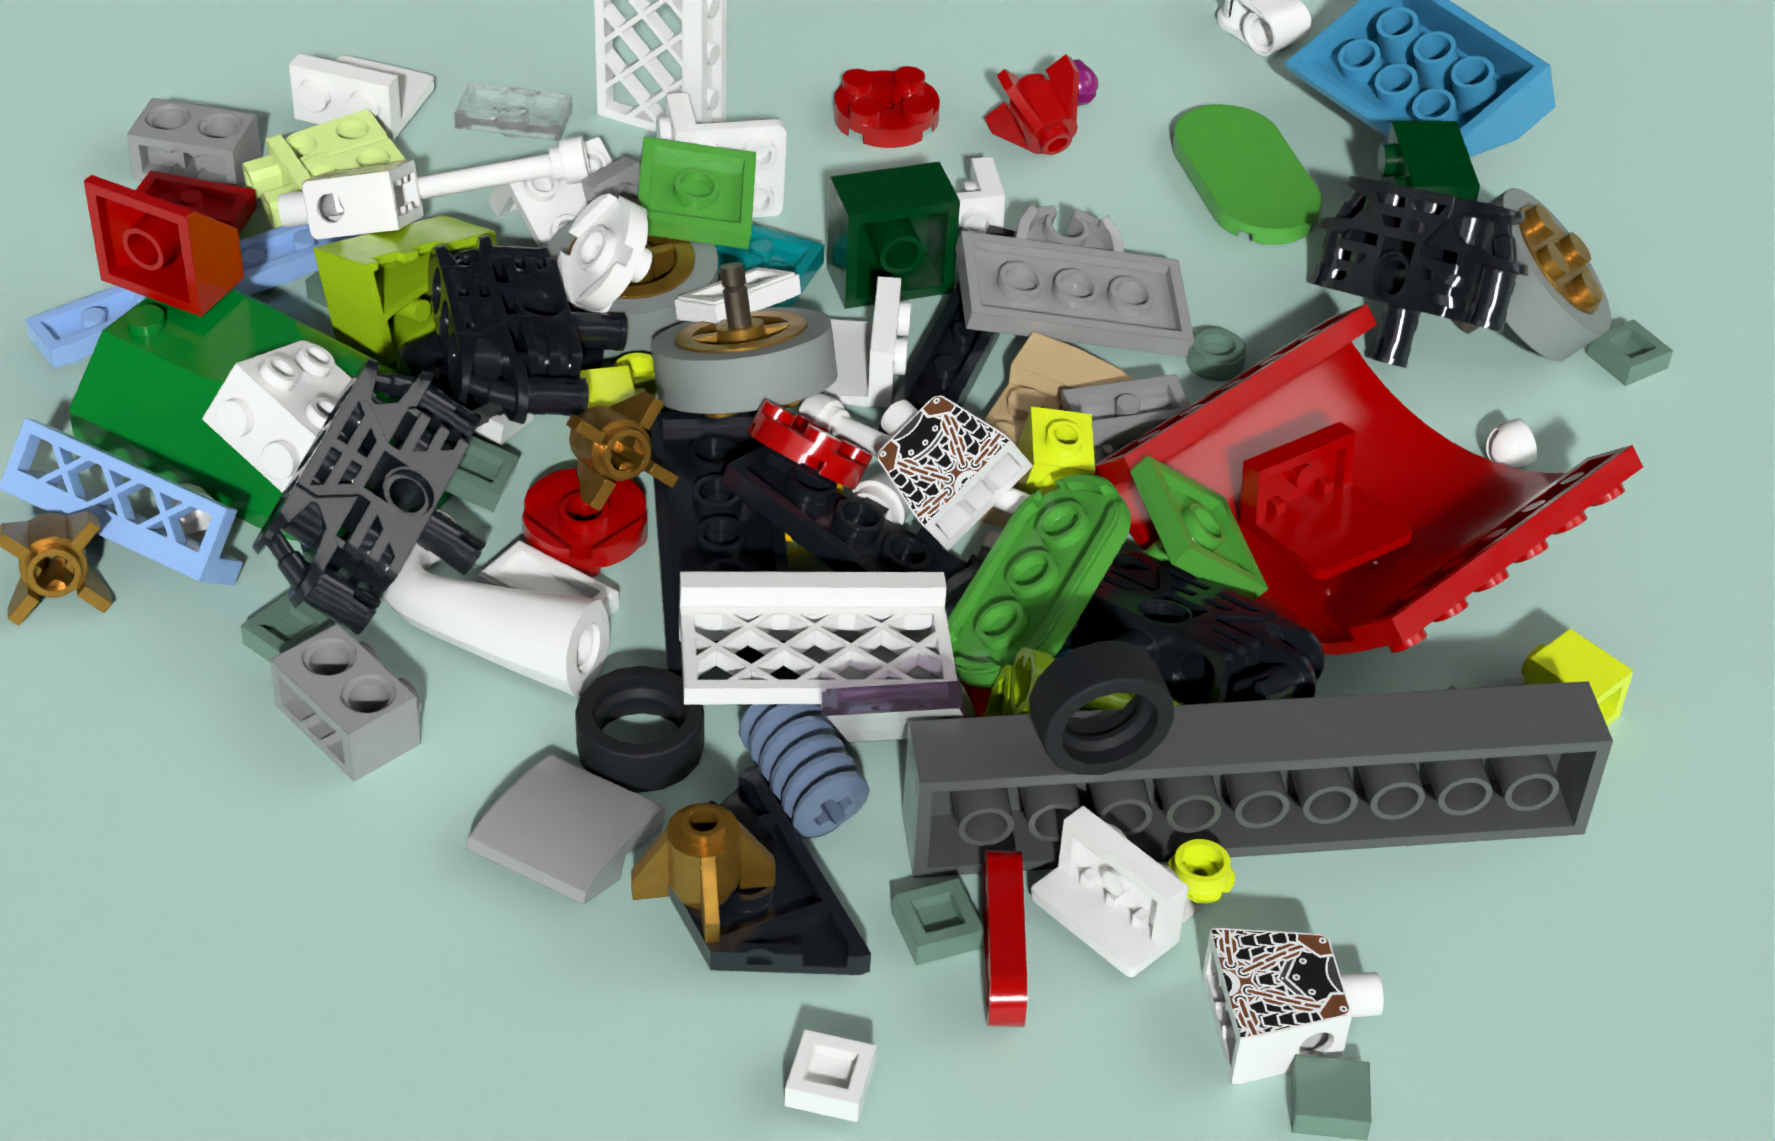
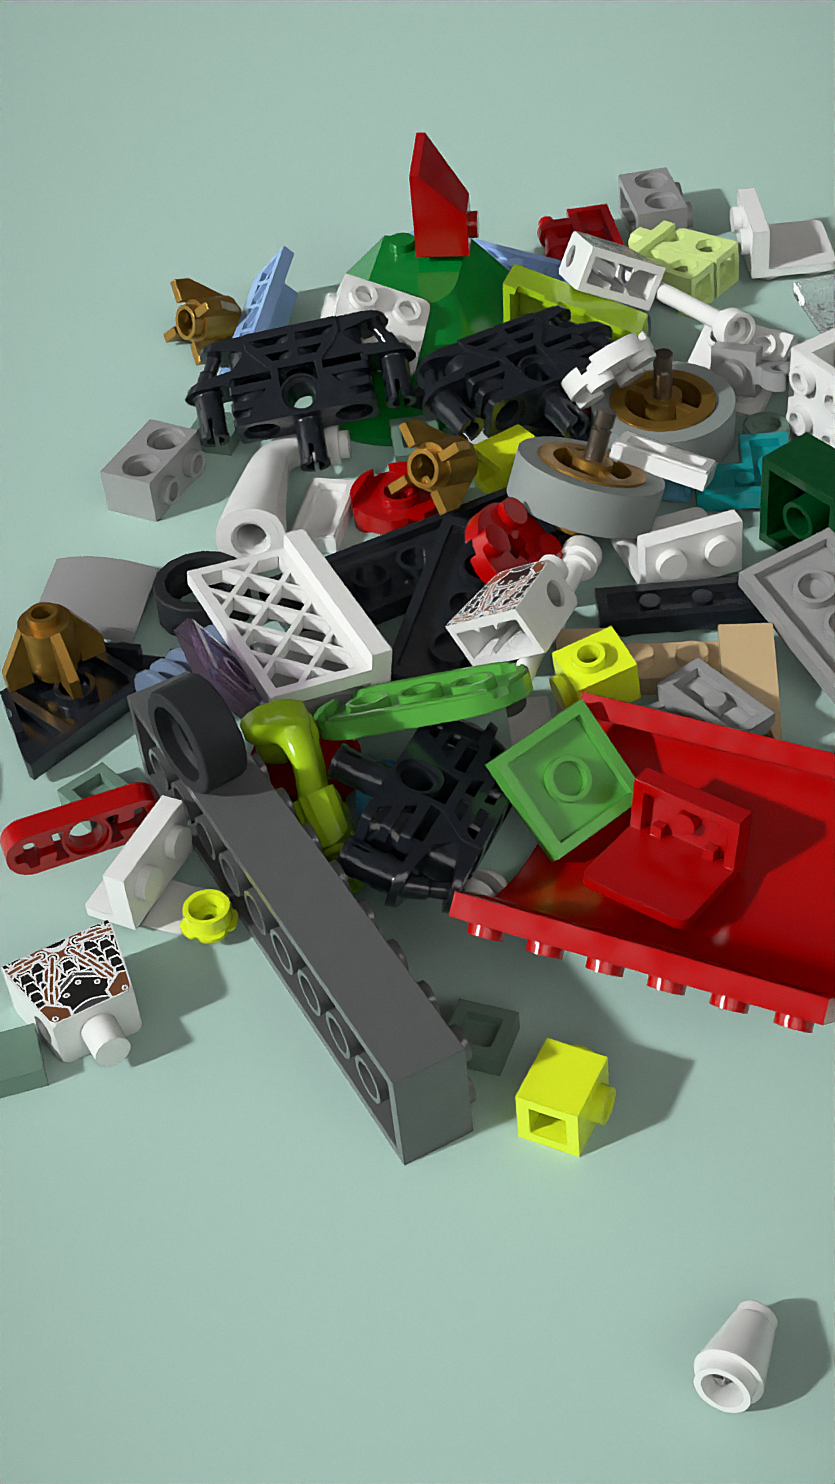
camera: 75 degrees right, 0 degrees up
(697, 192) = (749, 391): bright green tile -> none

